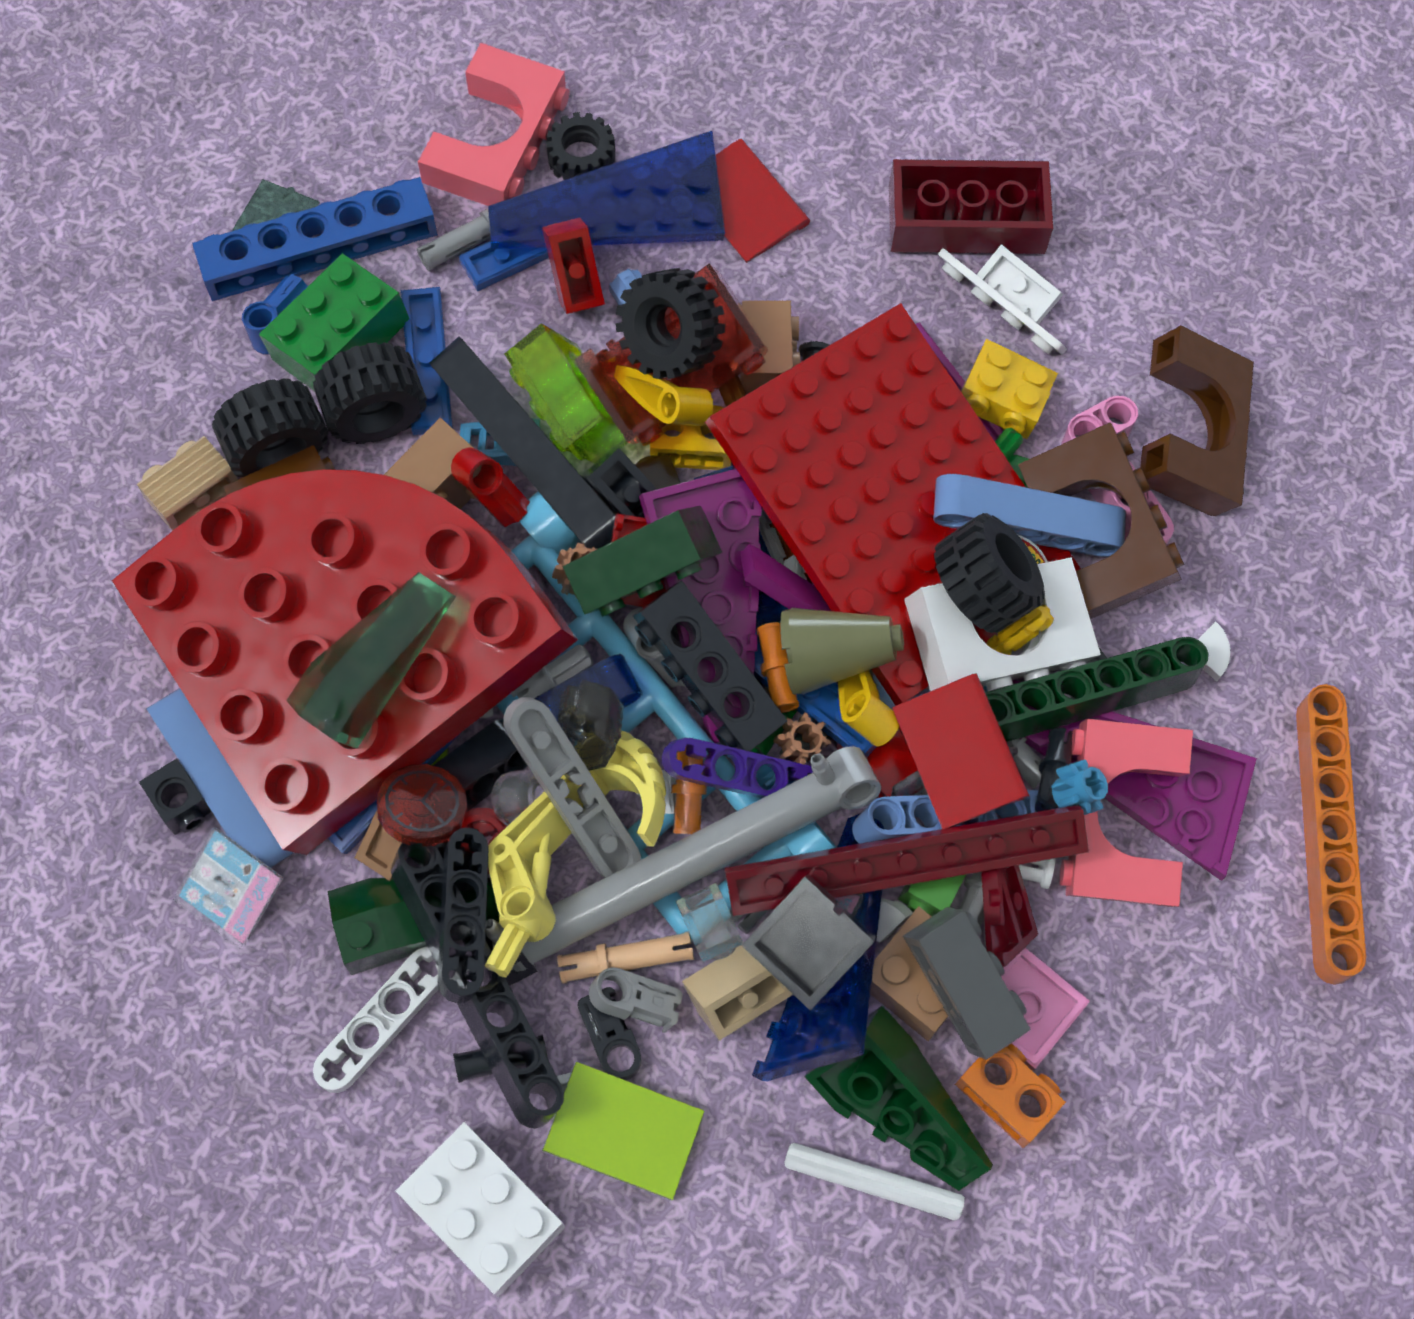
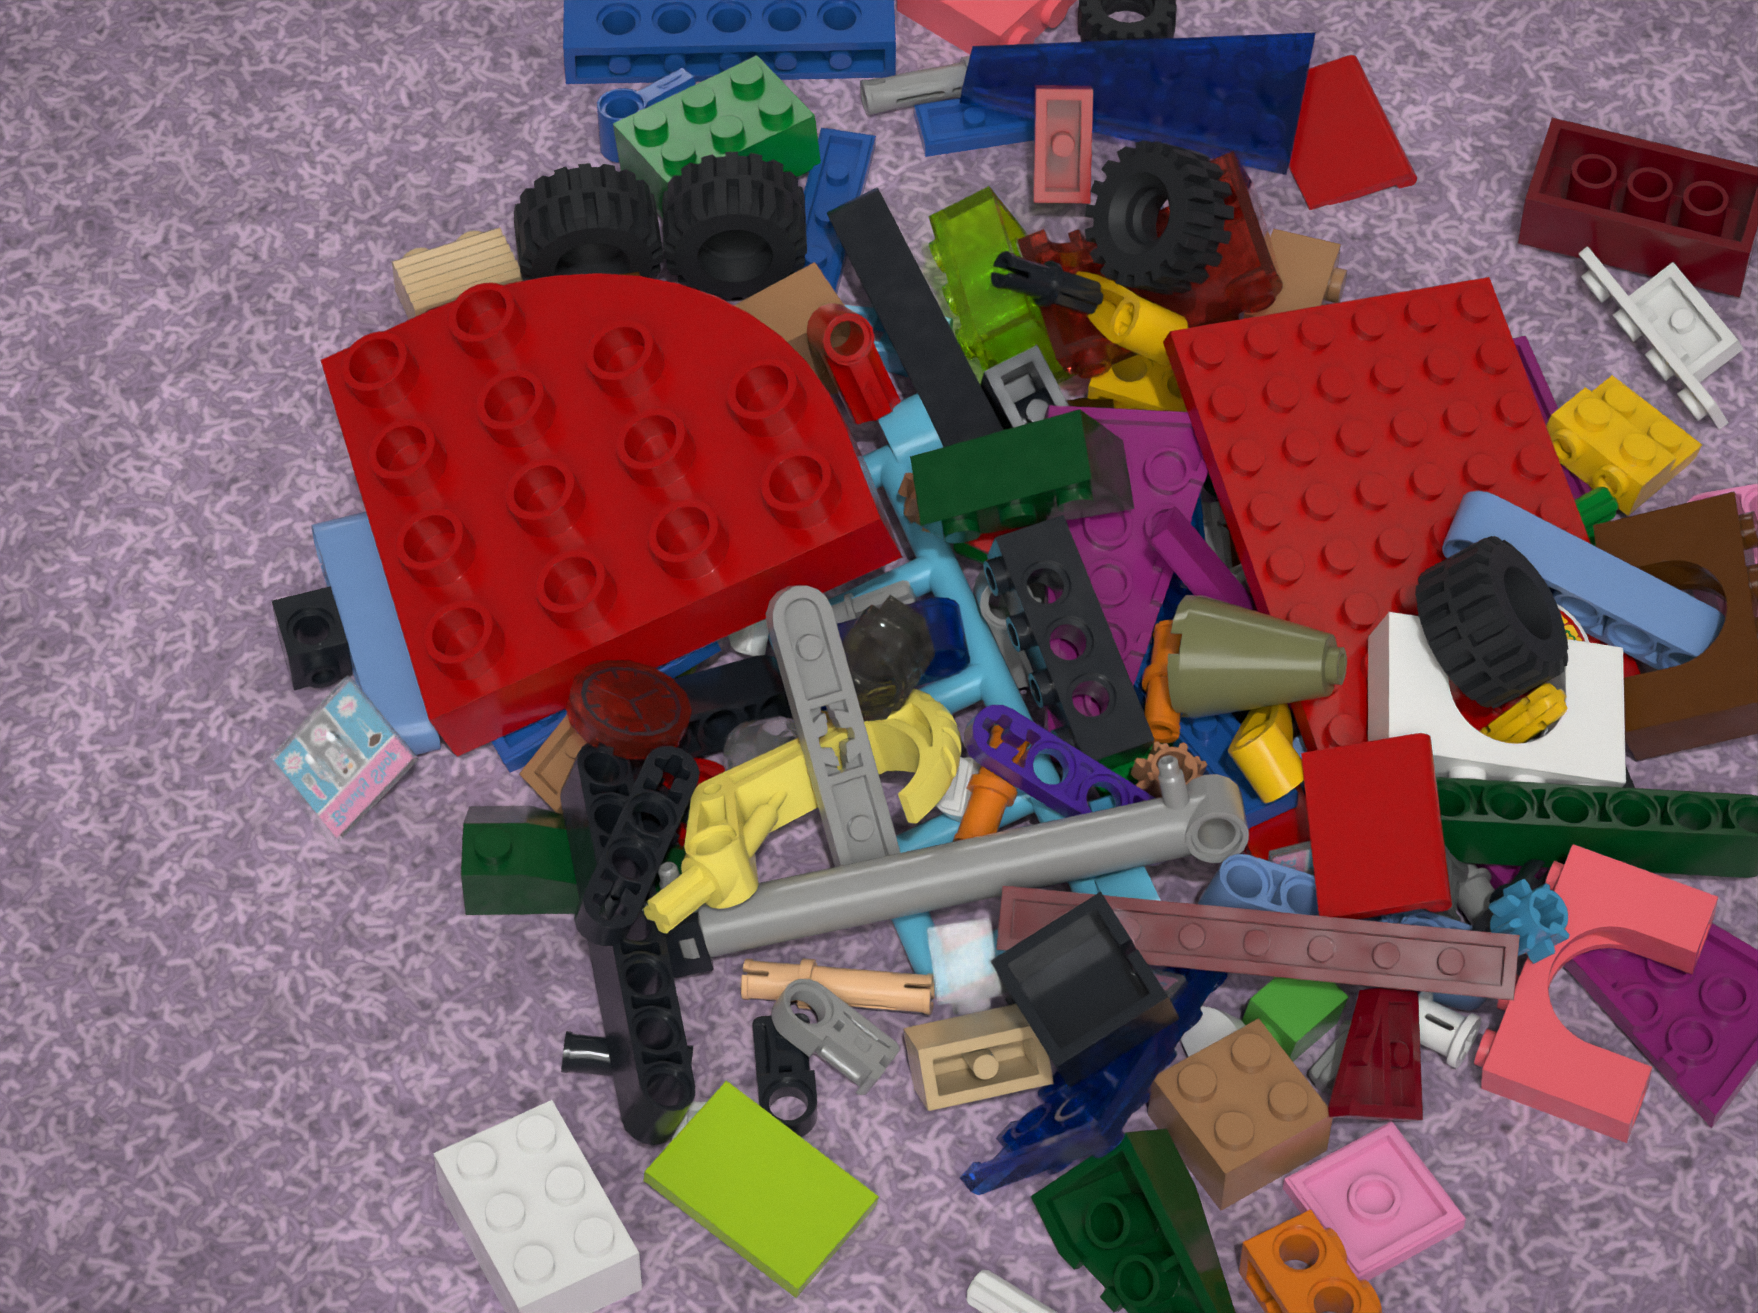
camera: 20 degrees right, 15 degrees down
(363, 668) = (608, 510): clear green wedge -> none
(375, 1014) = (481, 965): white beam -> none
(605, 391) = (1047, 283): none -> black axle
(968, 981) = (1288, 1109): dark grey brick -> none

